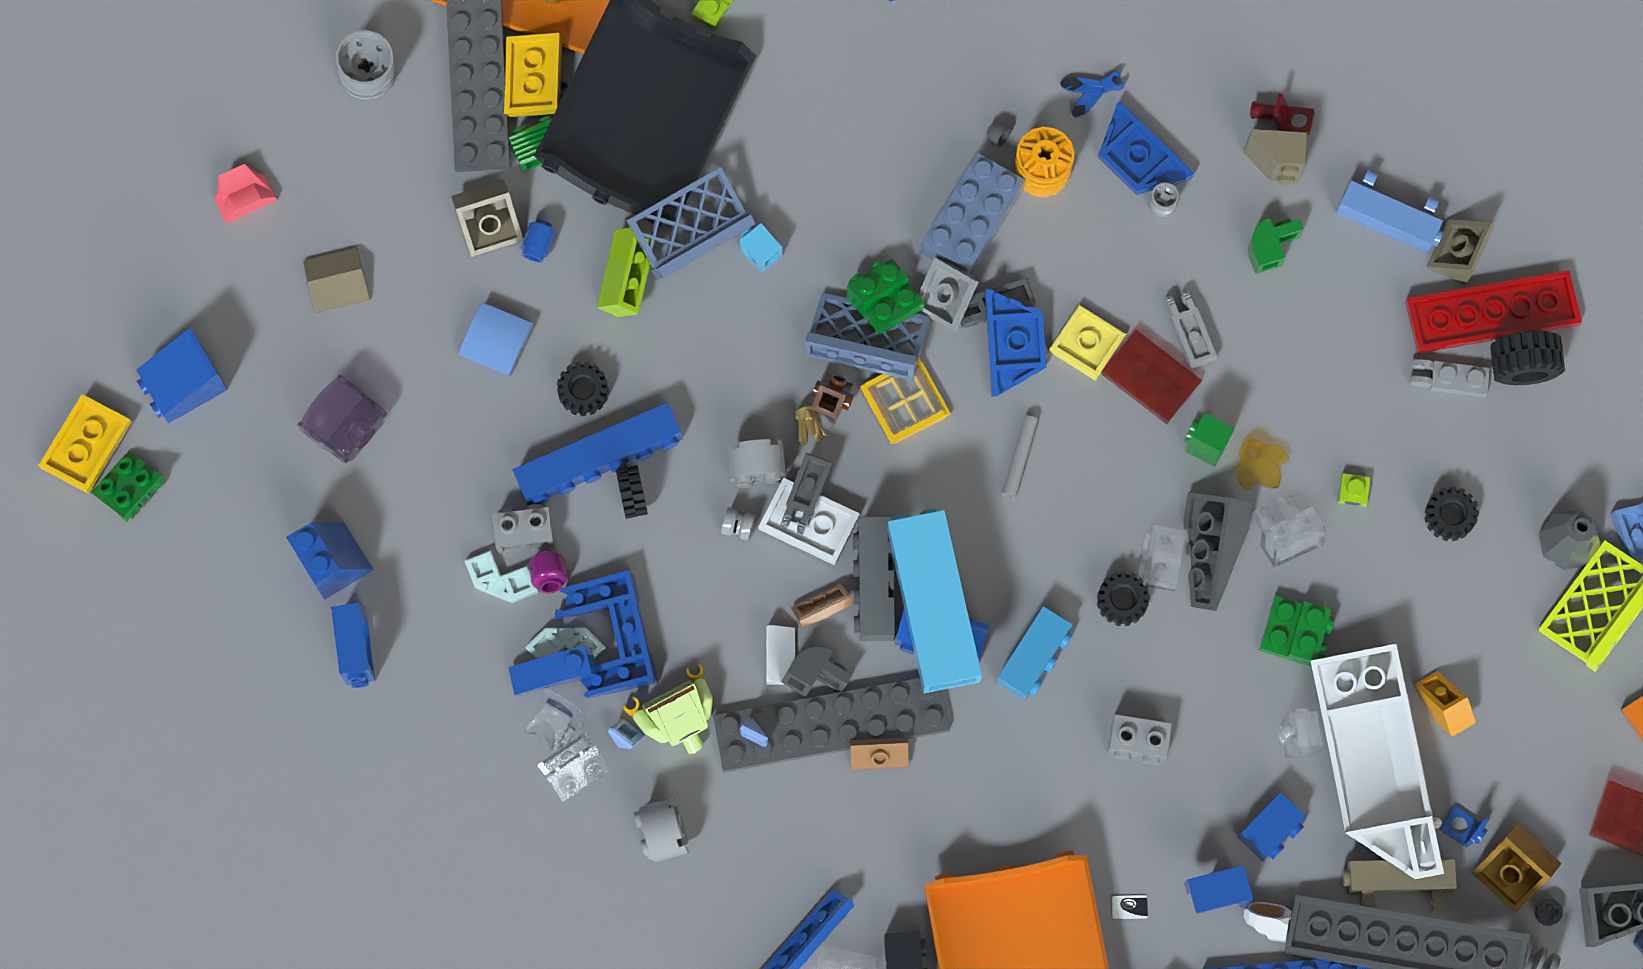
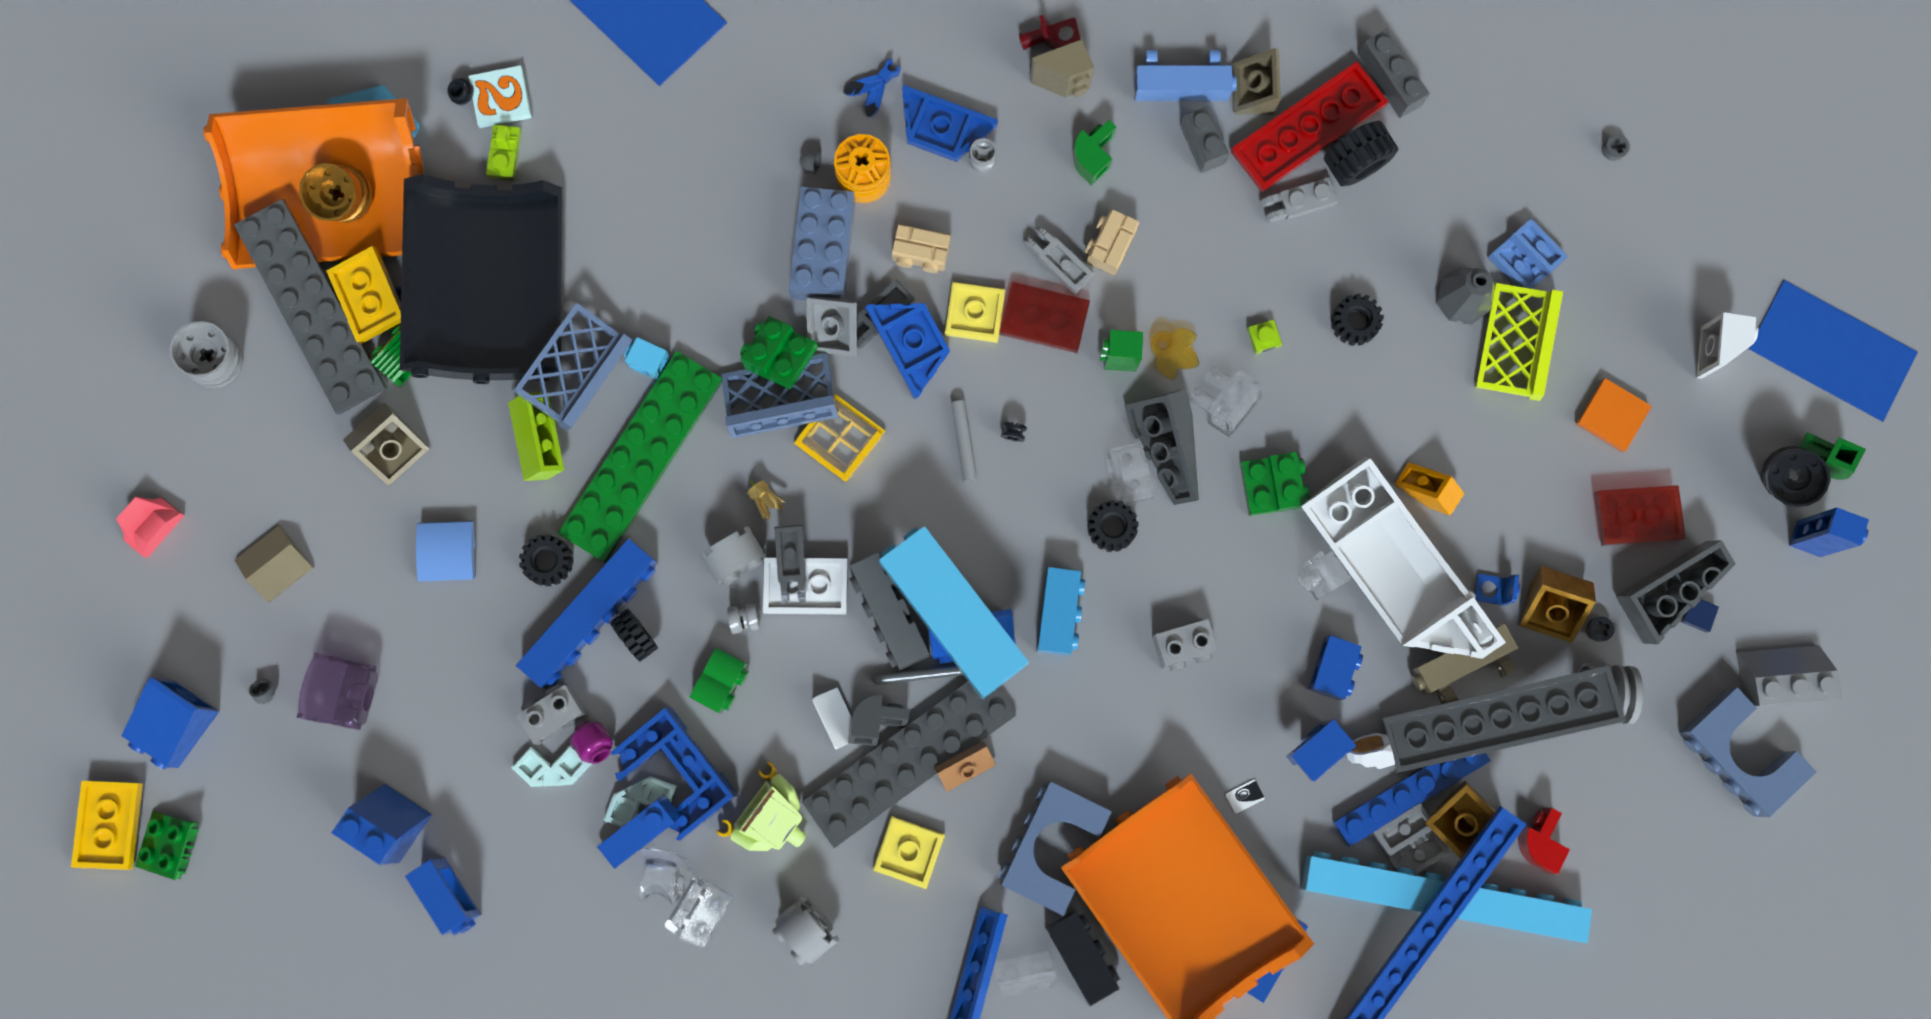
camera: 30 degrees left, 5 degrees up
(275, 389) = (262, 691): none -> dark grey hinge
(538, 240) = (442, 444): blue brick -> none
(625, 734) = (731, 856): light blue slope -> none
(689, 570) = (719, 680): none -> green brick
(712, 334) = (640, 457): none -> green plate
(753, 732) = (845, 802): light blue slope -> none
(789, 808) = (908, 852): none -> light yellow tile
(822, 605) = (852, 657): medium nougat plate -> none
(832, 395) = (773, 464): reddish brown brick -> none
(875, 651) = (916, 674): none -> dark grey piece
(945, 829) = (1023, 873): none -> sand blue arch
(1064, 260) = (921, 248): none -> tan brick
(1070, 469) = (1013, 432): none -> black bush
(1249, 335) = (1112, 242): none -> tan brick
(1384, 278) = (1204, 139): none -> dark grey brick
(1599, 297) = (1393, 73): none -> dark grey brick

